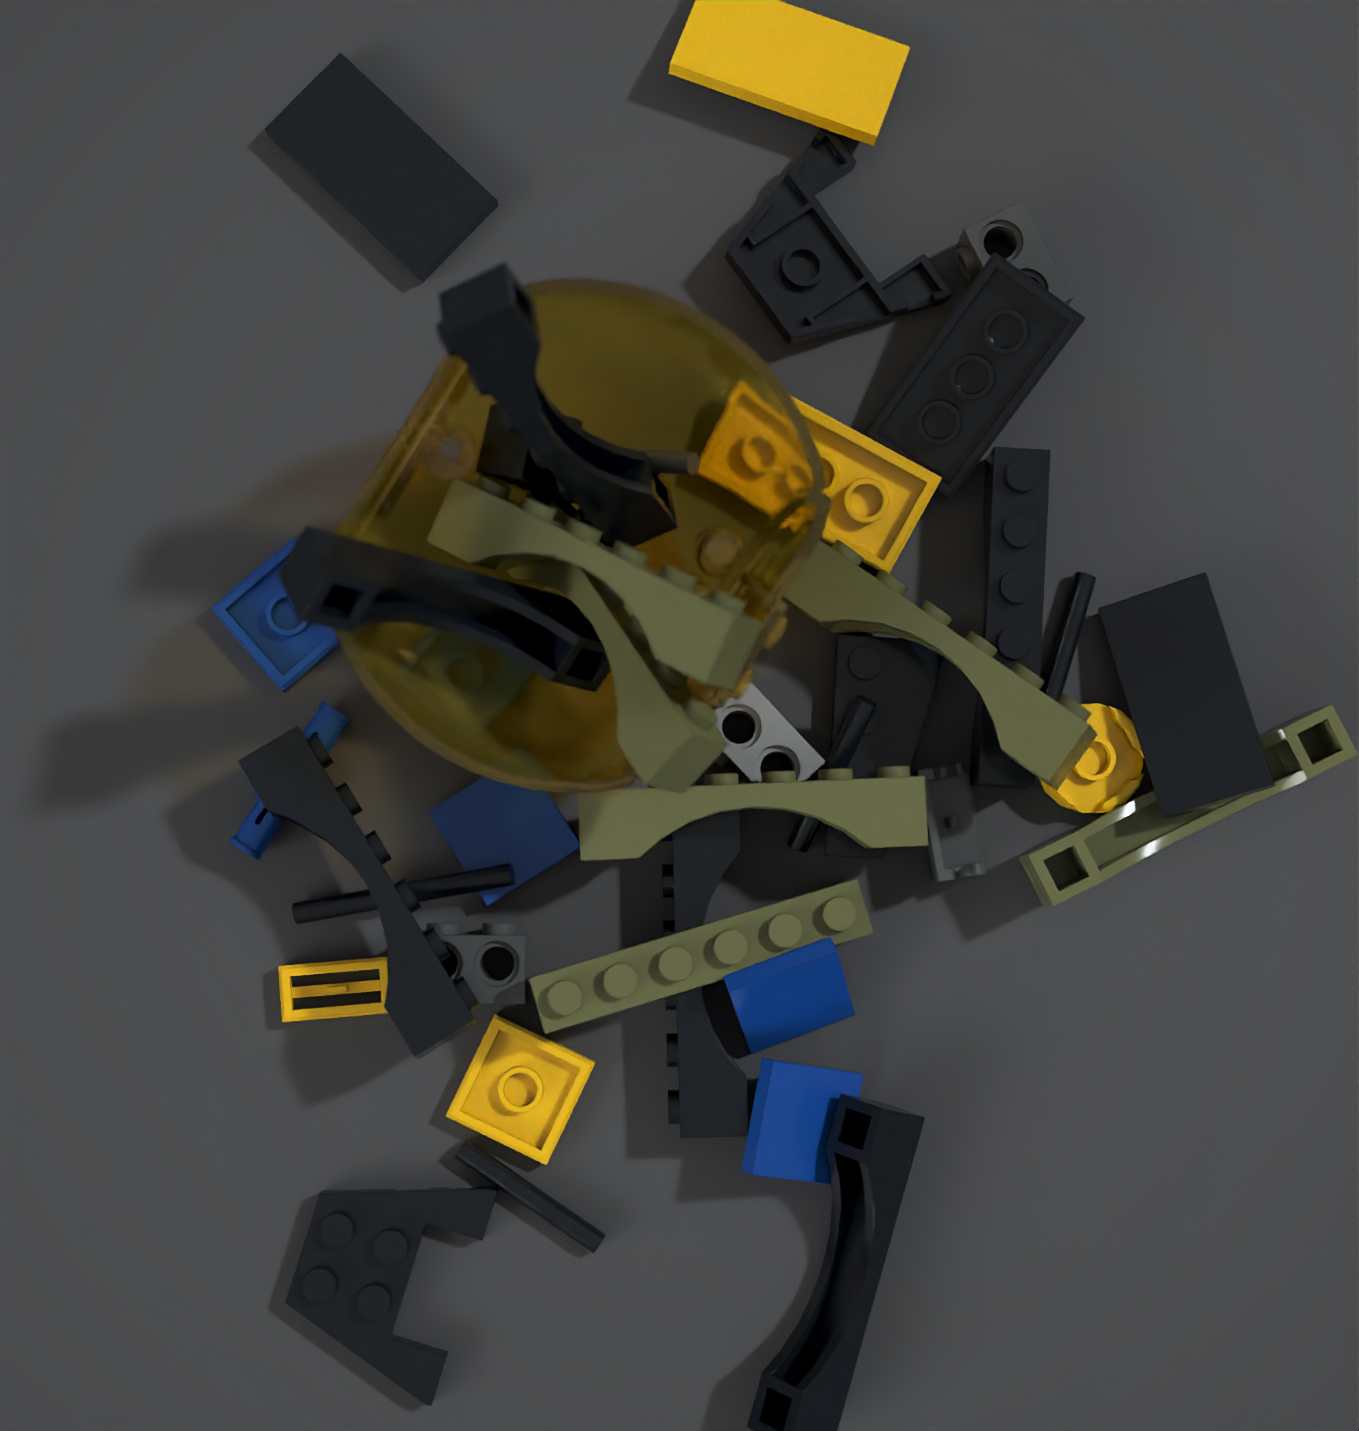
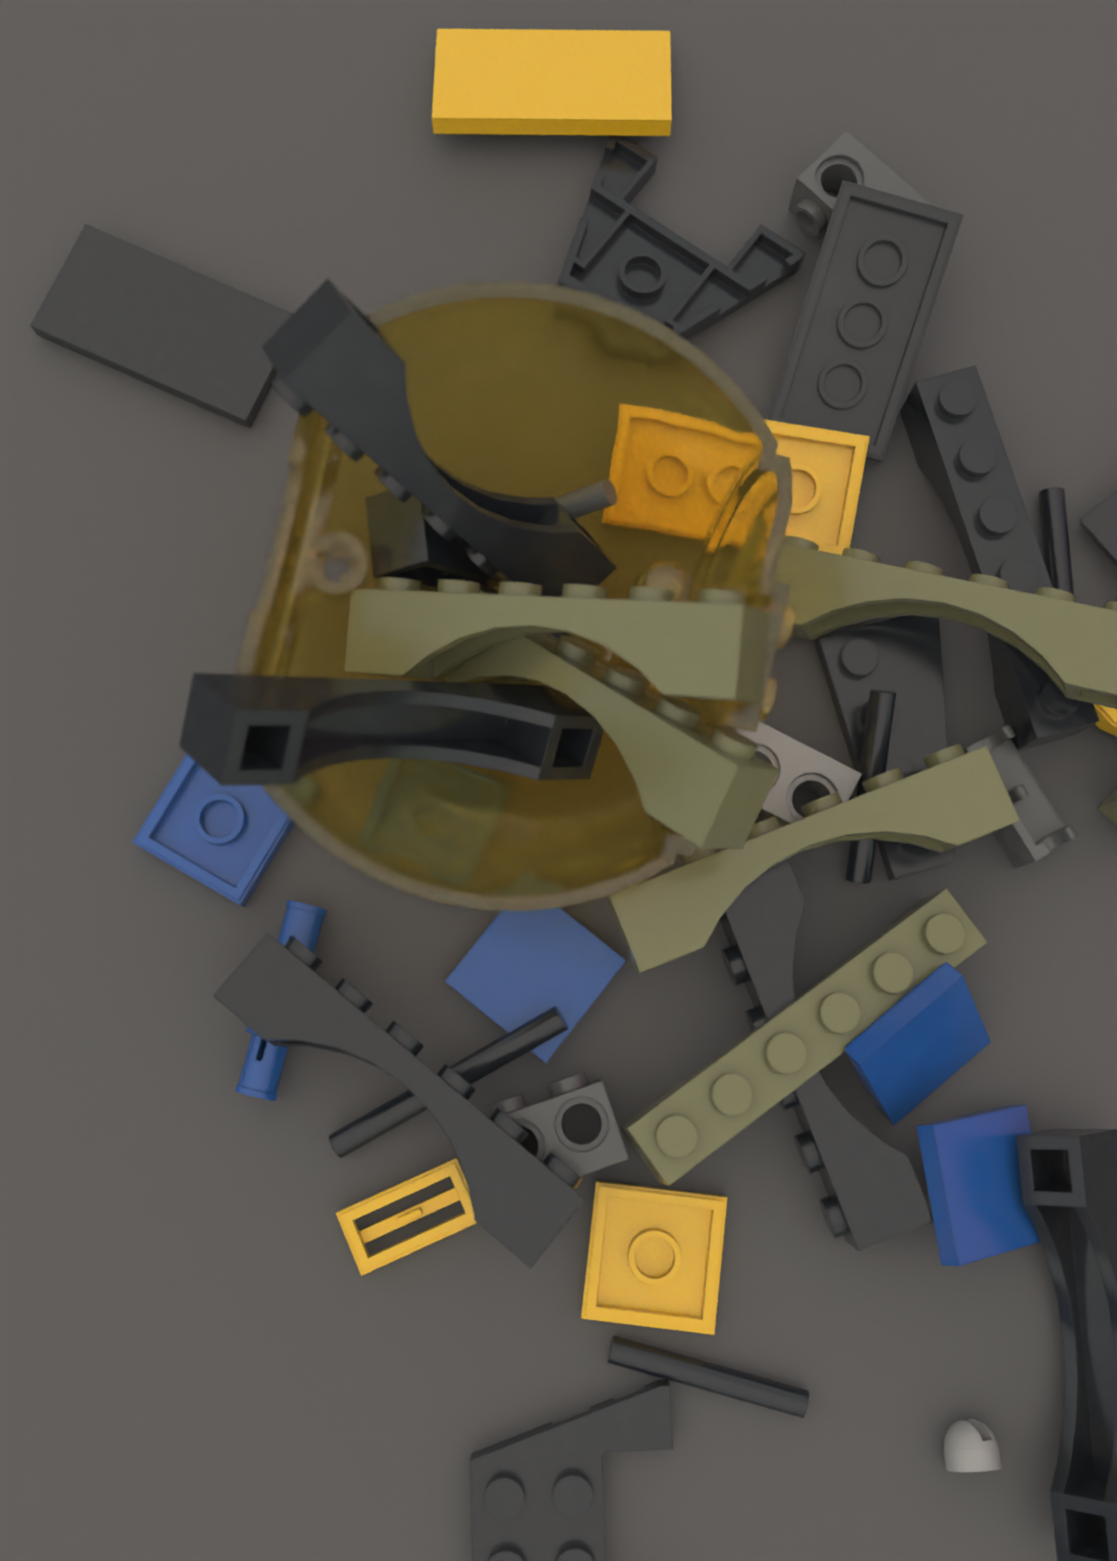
camera: 15 degrees left, 5 degrees down
(717, 1320) = (971, 1447): none -> light grey hinge

